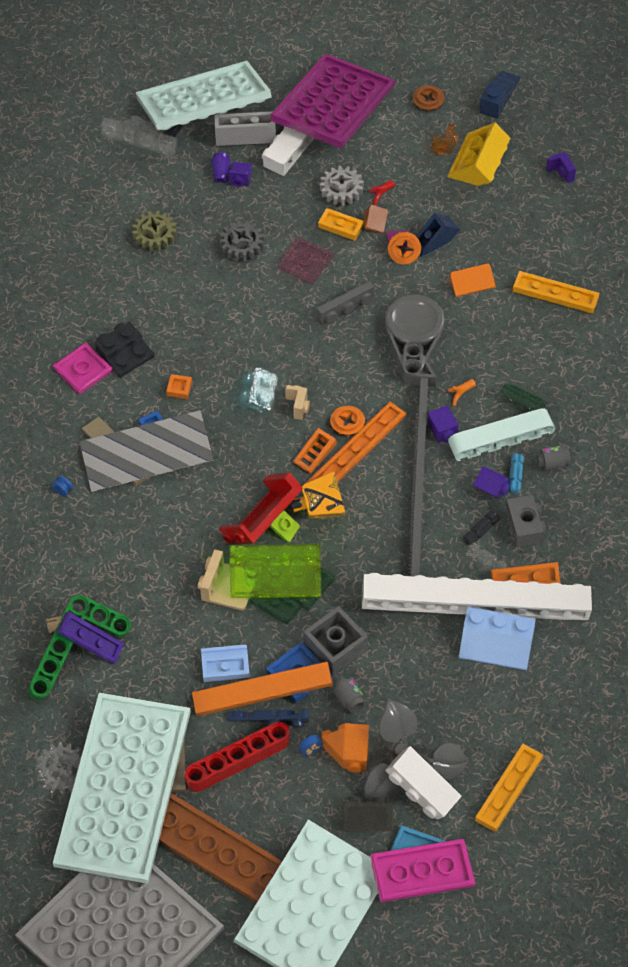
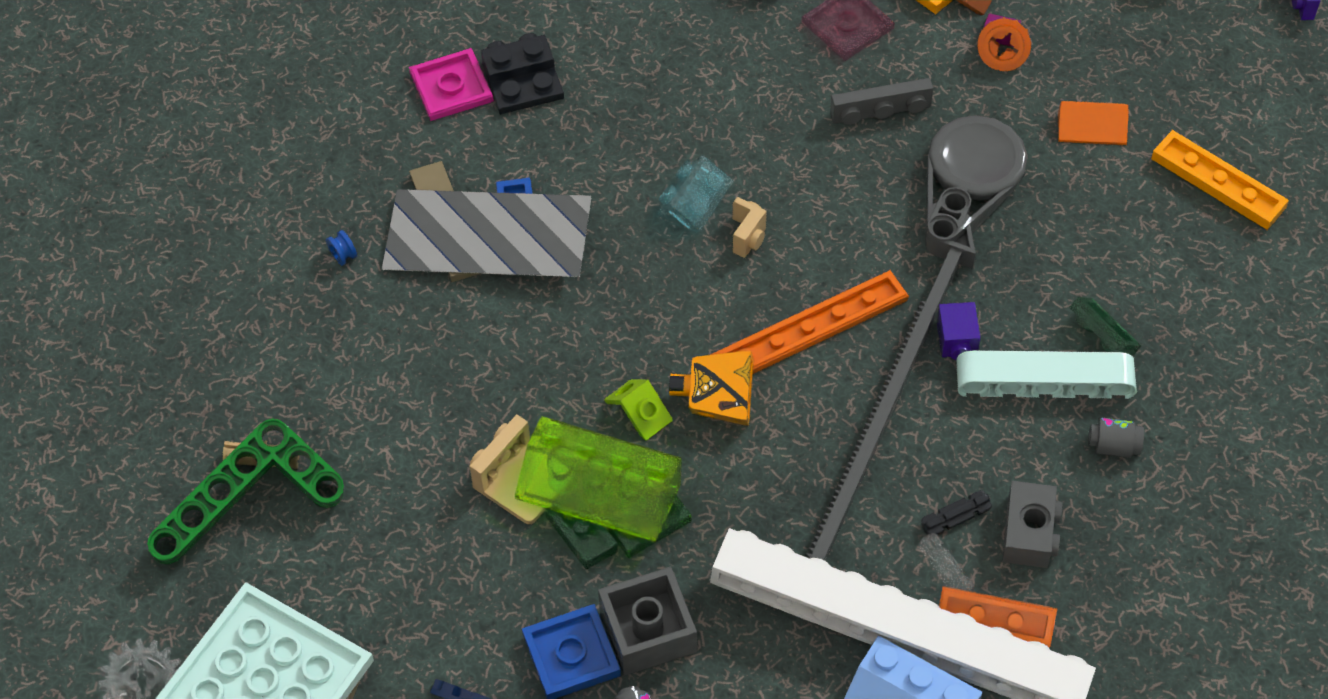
camera: 20 degrees right, 0 degrees up
(90, 637) = (271, 491): dark purple tile -> none
(179, 386) = (579, 152): orange plate -> none
(225, 663) = (464, 599): light blue plate -> none
(262, 688) = (502, 660): orange tile -> none
(282, 491) = (665, 356): red panel -> none
(313, 441) = (746, 295): orange slope -> none
(343, 413) = (812, 267): orange gear -> none
(436, 233) = (1063, 36): dark blue slope -> none
(461, 389) = (1010, 285): orange bar -> none
(492, 483) = (999, 447): dark purple brick -> none
(516, 473) = (1046, 444): dark azure axle -> none

